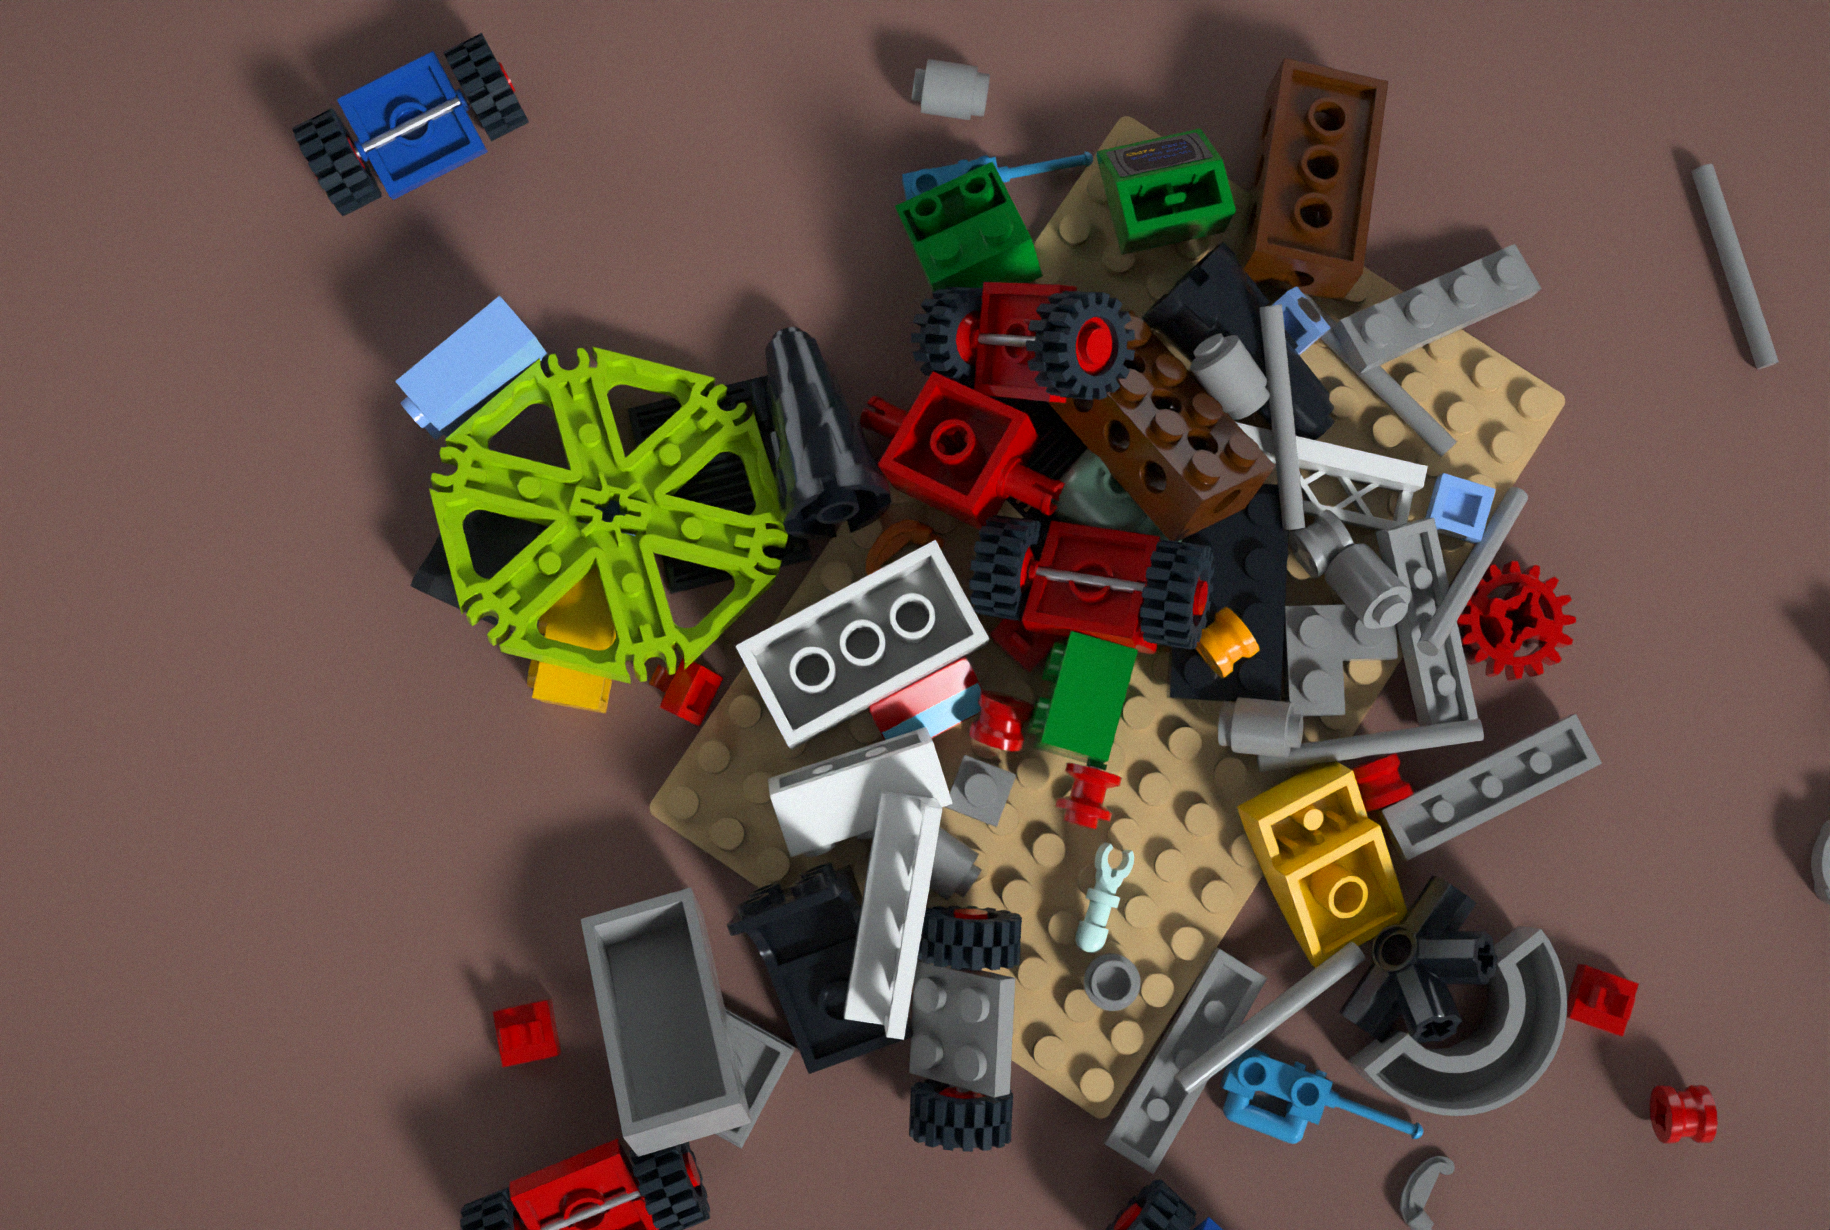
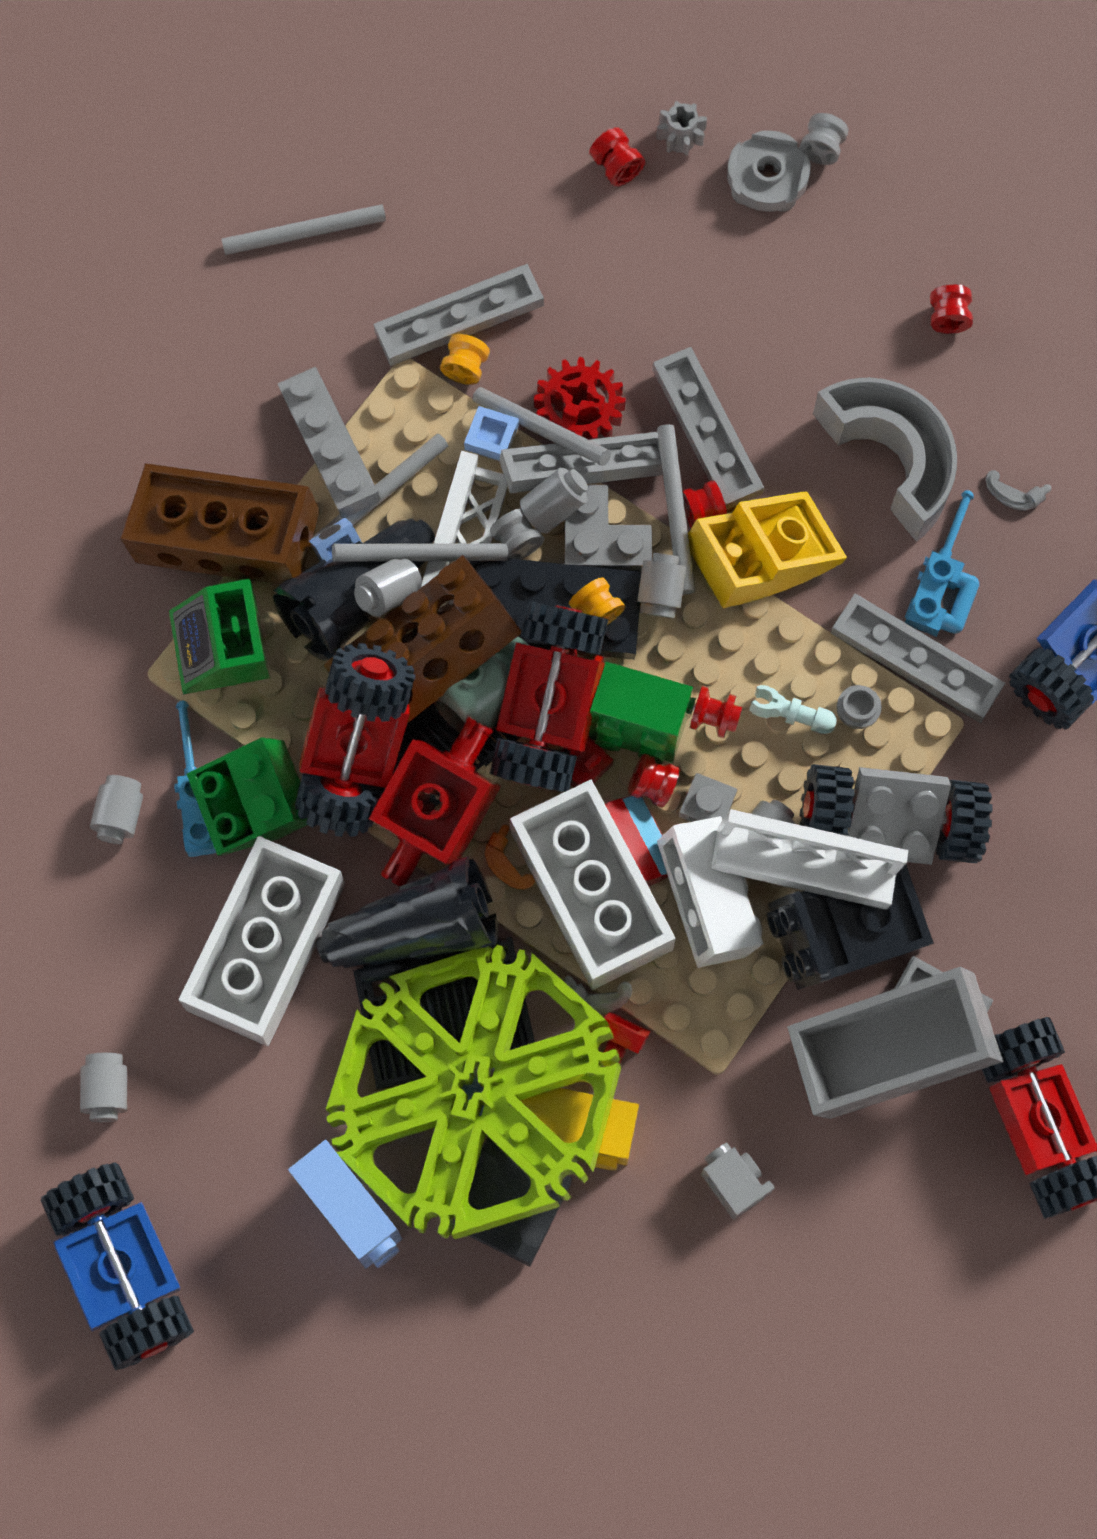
camera: 85 degrees left, 10 degrees down
(514, 828) = (735, 1180): none -> light grey brick
(526, 1032) = (903, 1176): red tile -> none
(620, 99) = (103, 1087): none -> light grey brick
(731, 662) = (602, 1002): none -> light grey piece
(790, 262) = (262, 941): none -> white brick
(1269, 1017) = (885, 592): light grey bar -> none
(1436, 958) = (859, 480): black piece -> none
(1564, 473) = (464, 359): none -> light orange wheel
(1601, 999) = (867, 358): red tile -> none
(1627, 465) = (458, 313): none -> light grey plate

